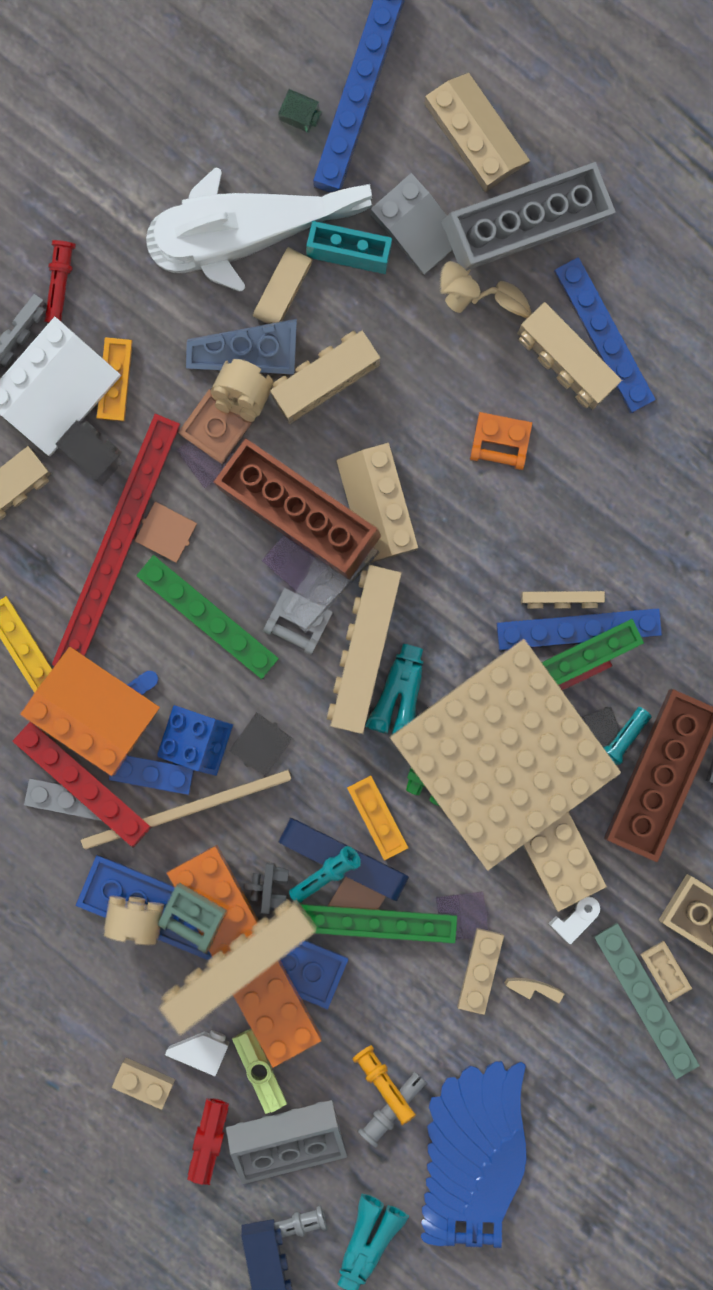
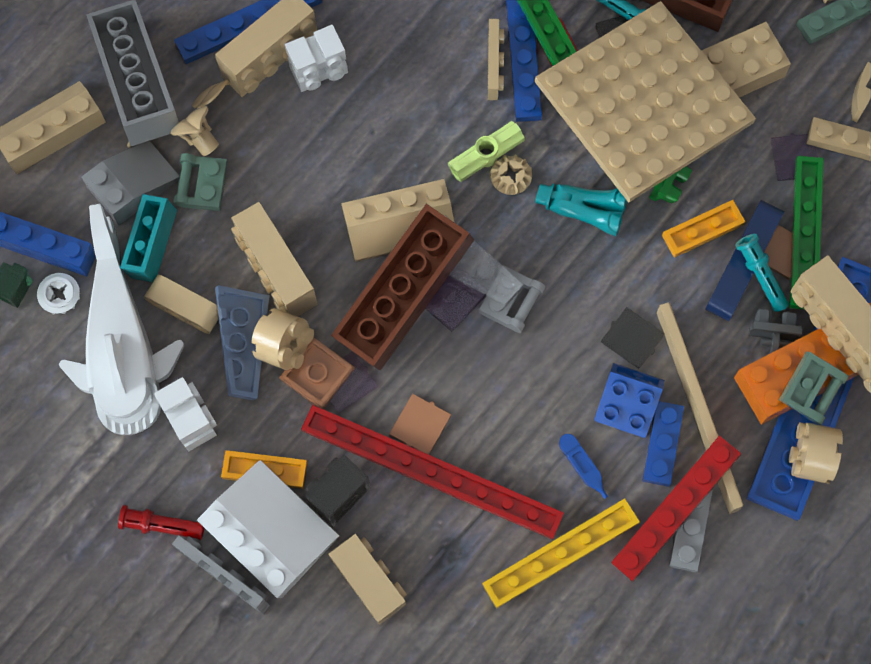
camera: 90 degrees left, 15 degrees down
(90, 711) = (602, 495): orange slope -> none
(163, 298) = (189, 420): none -> white brick
(207, 617) = (505, 385): green plate -> none
(292, 147) = (59, 282): none -> white gear
(365, 649) = (542, 230): tan brick -> none
(414, 305) = (209, 182): none -> sand green plate
(423, 611) = (505, 183): none -> tan gear
(446, 576) = (498, 142): none -> yellowish green piece
(502, 432) = (335, 109): orange plate -> none
(552, 409) = (317, 58): none -> white brick
(577, 920) = (801, 56): white leg -> none

